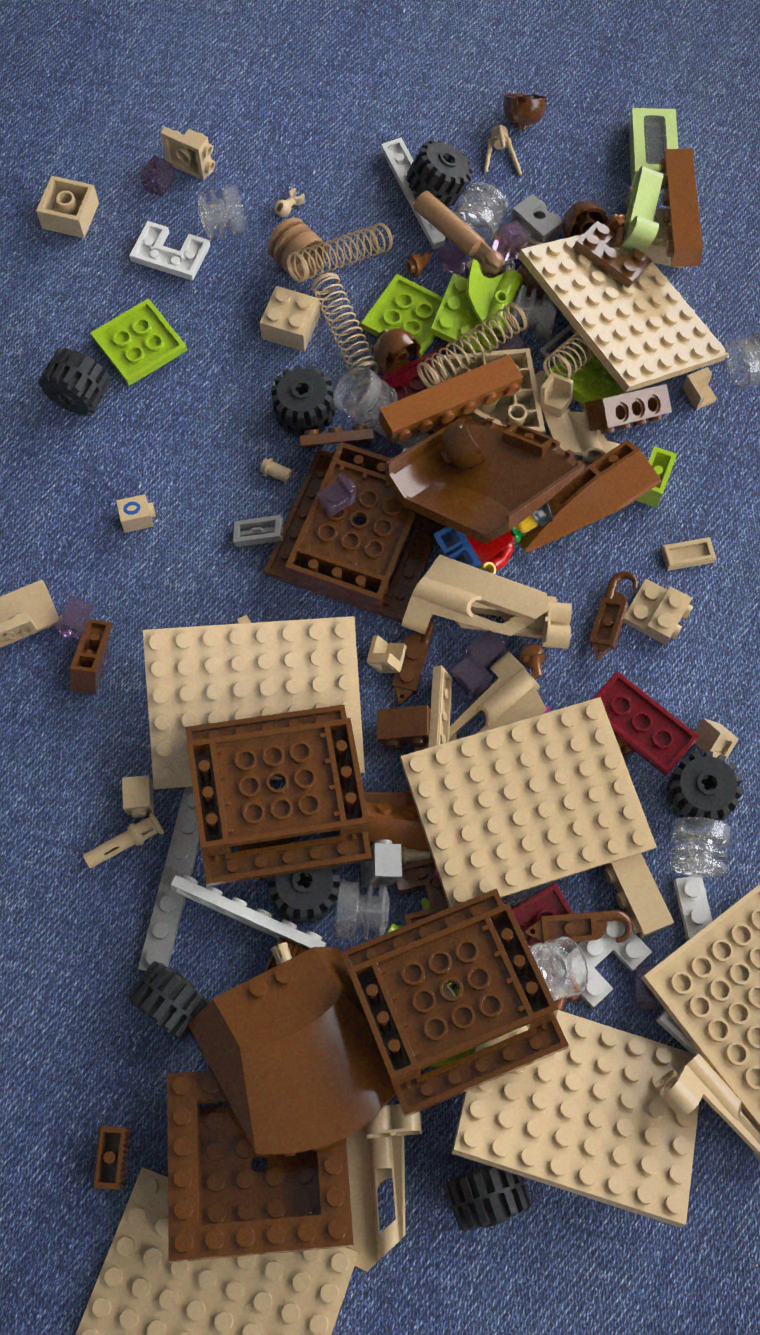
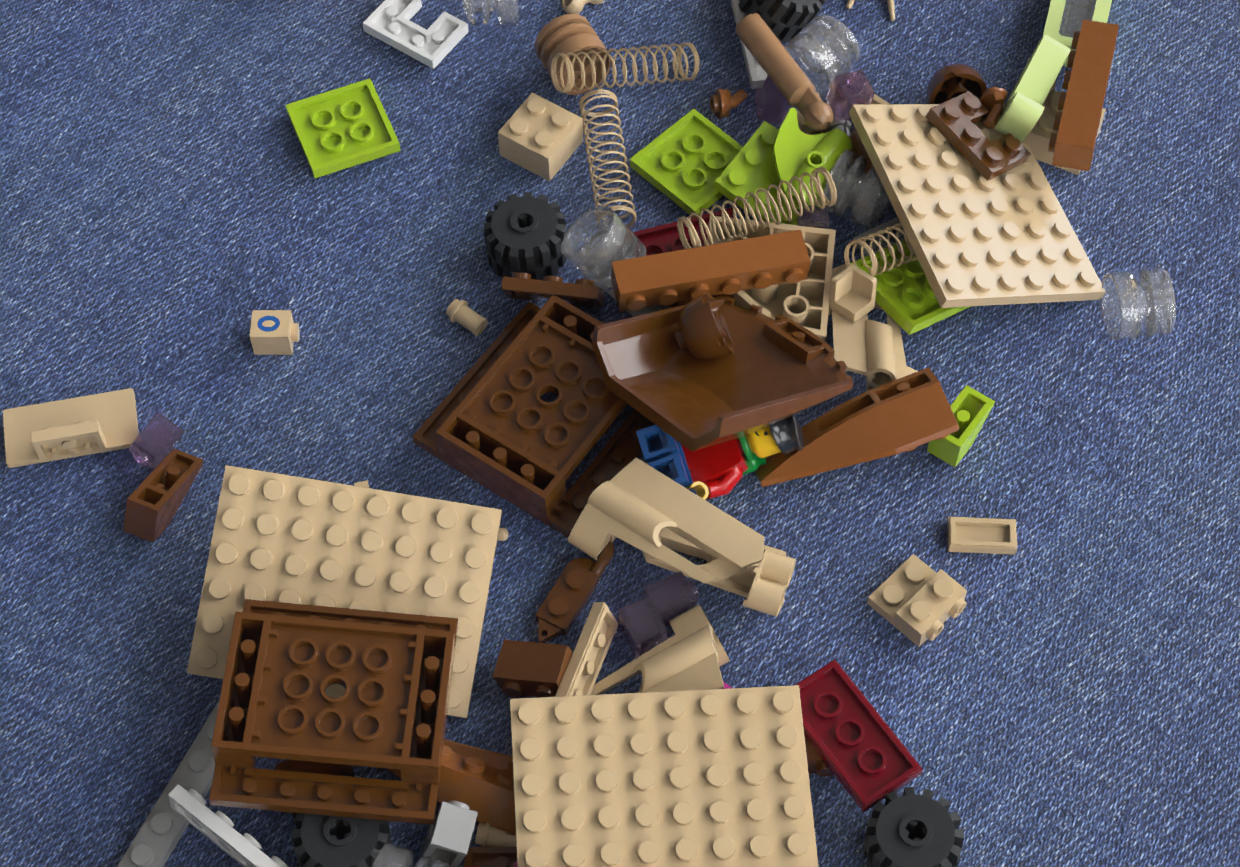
camera: 15 degrees right, 10 degrees down
(74, 381) = (245, 158): black wheel -> none
(134, 835) = (147, 728): tan pin -> none
(138, 796) = (166, 679): tan brick -> none
(257, 534) = (418, 390): light grey tile -> none
(337, 495) = (528, 358): clear purple bracket -> none
(386, 656) = (536, 576): tan panel -> none
(394, 349) = (661, 199): reddish brown cylinder -> none
(532, 657) = (731, 620): dark orange plate -> none
(536, 220) = (893, 77): light grey brick -> none
(610, 616) = (851, 591): reddish brown plate -> none
(627, 408) = (944, 329): brick -> none
(698, 390) = (1053, 328): tan panel -> none
(715, 738) = (948, 780): tan panel -> none

